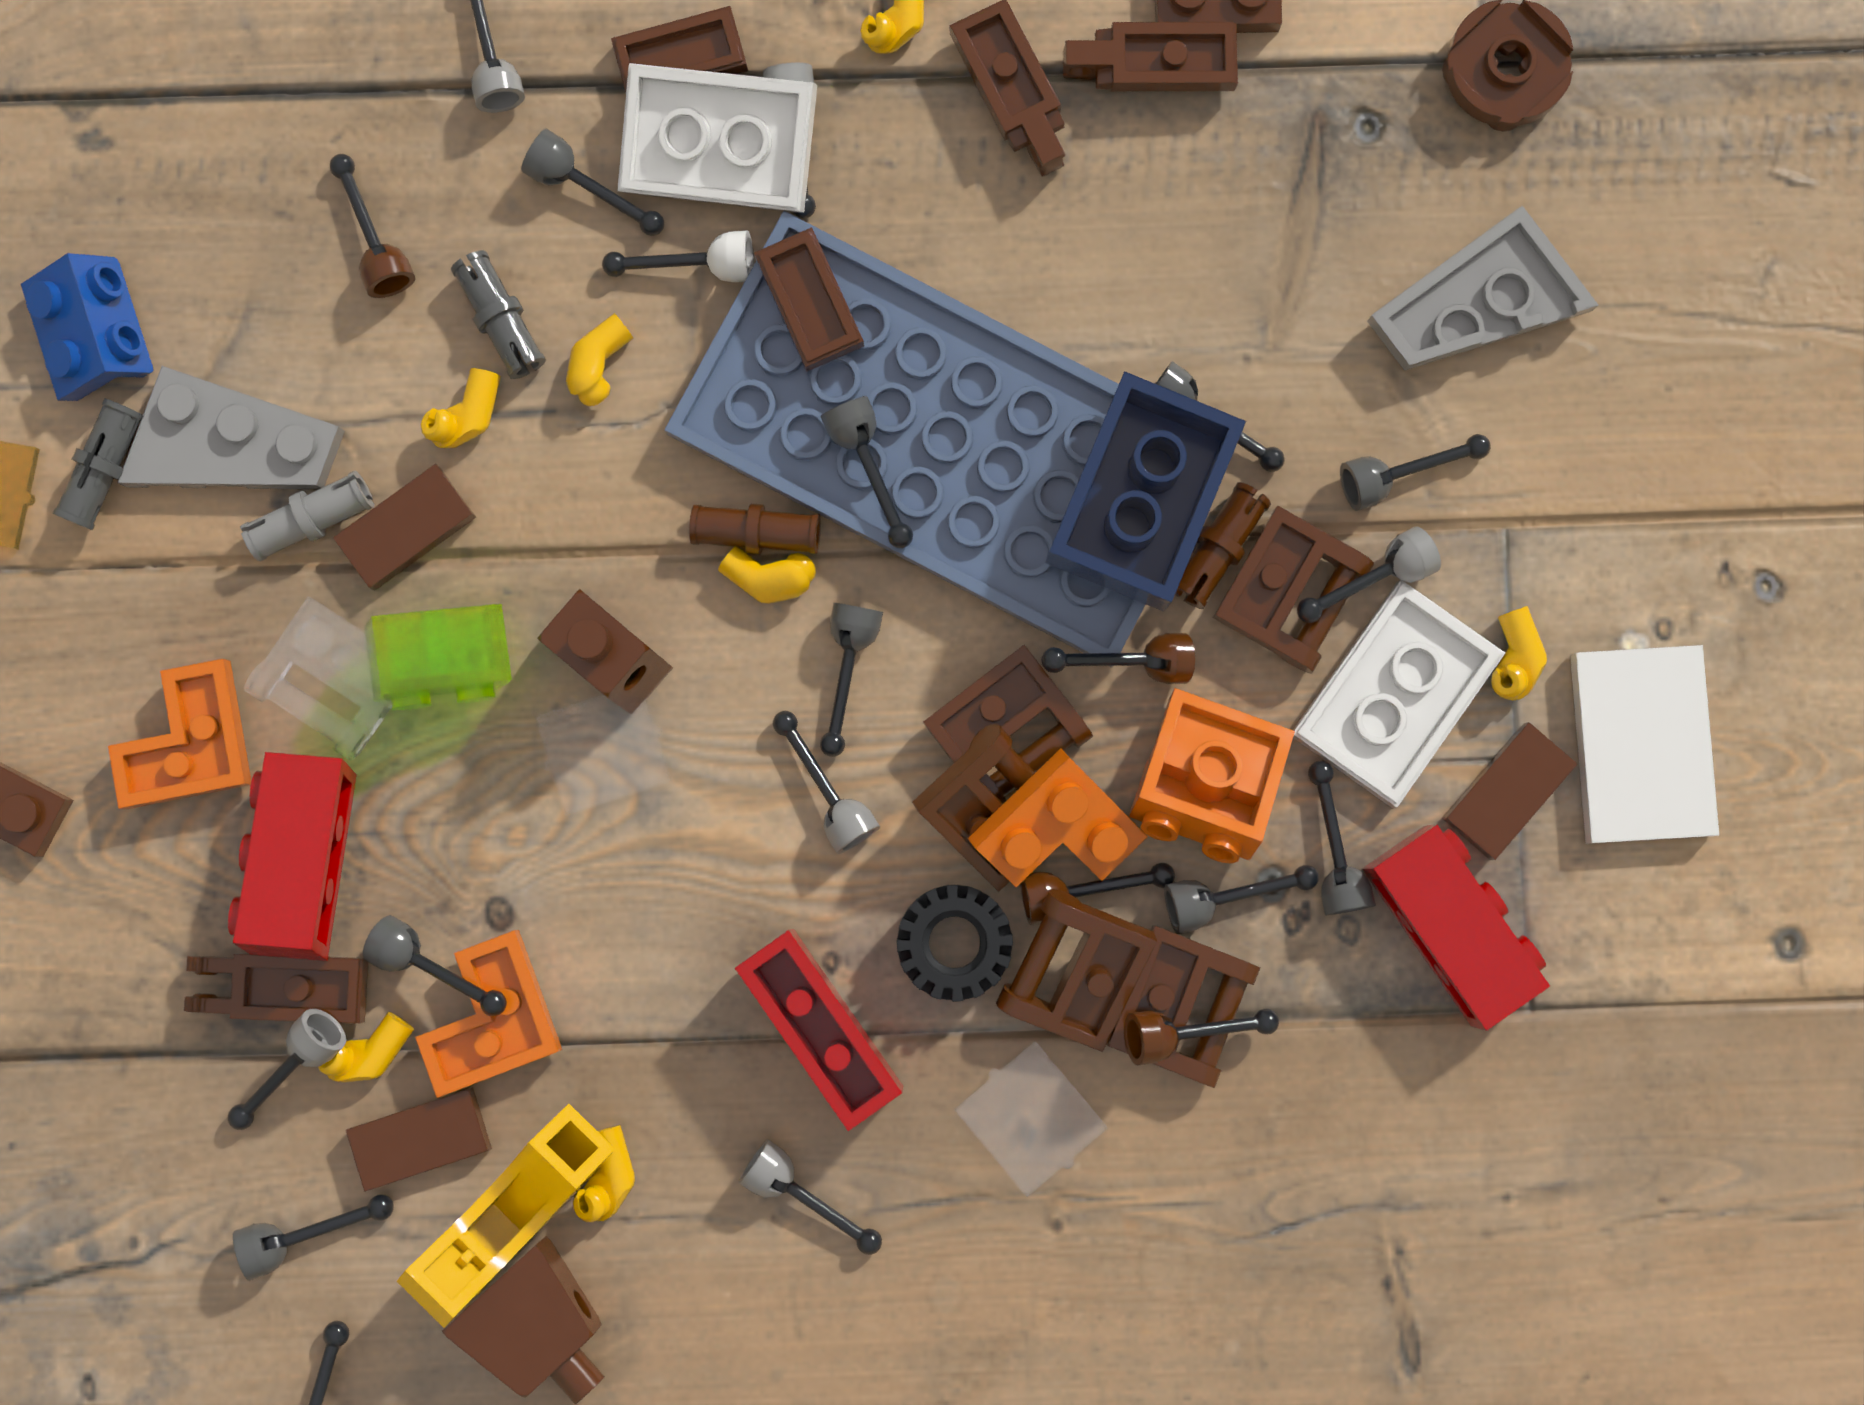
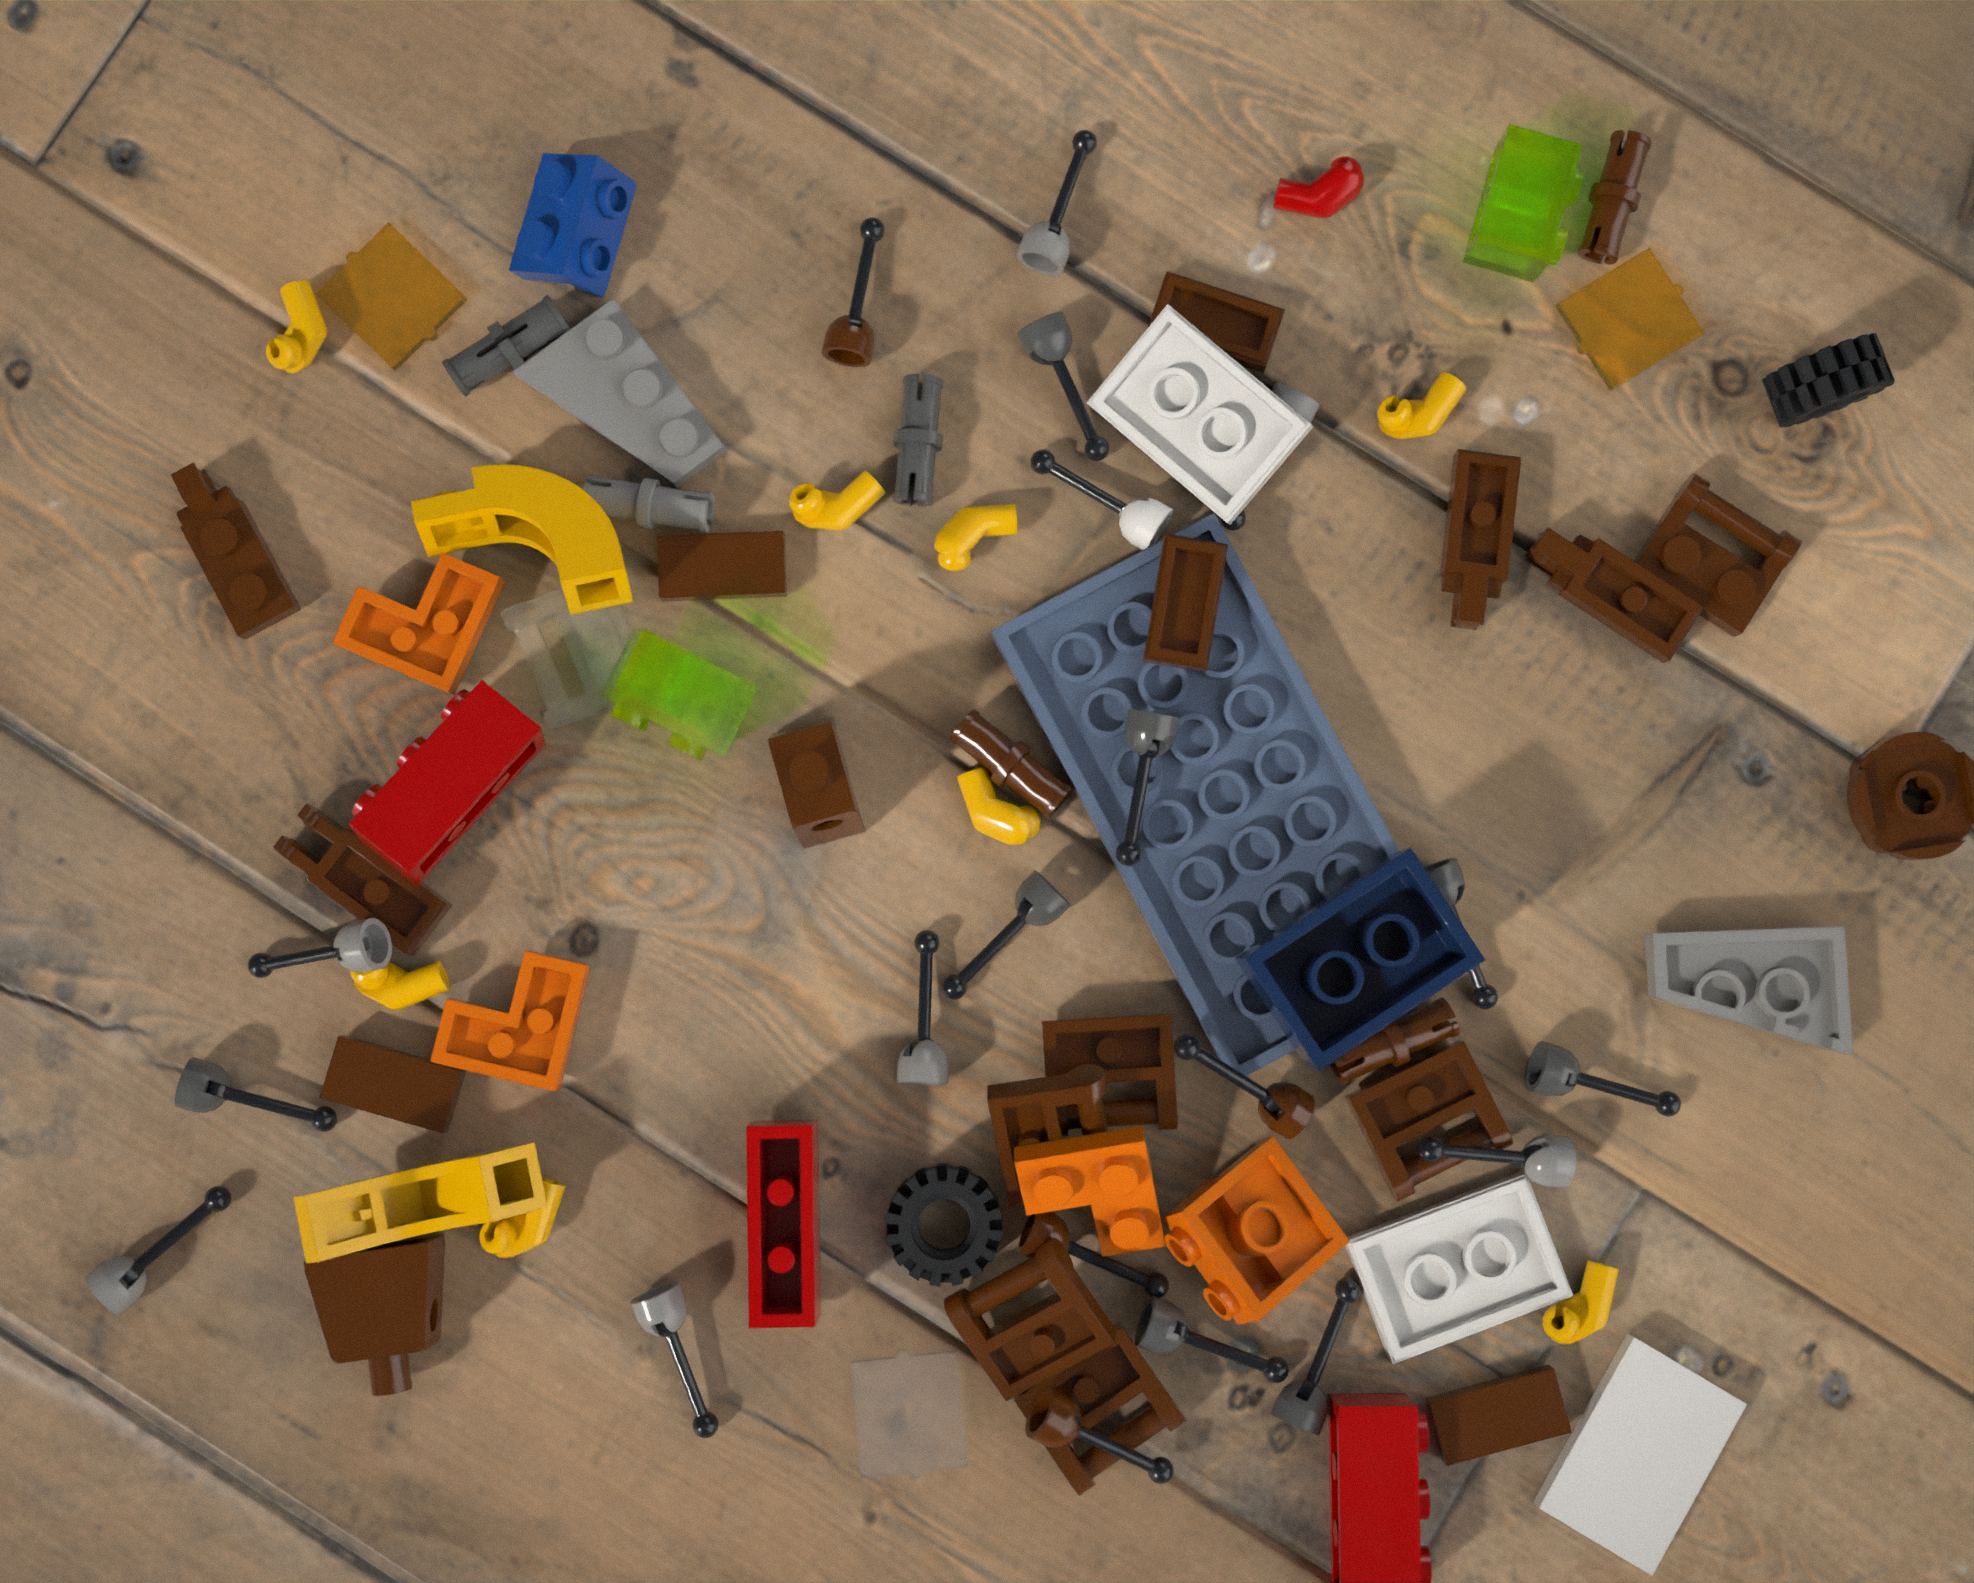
camera: 30 degrees right, 0 degrees up
(218, 584) = (535, 511): none -> yellow arch
(396, 946) = (481, 913): hinge -> none

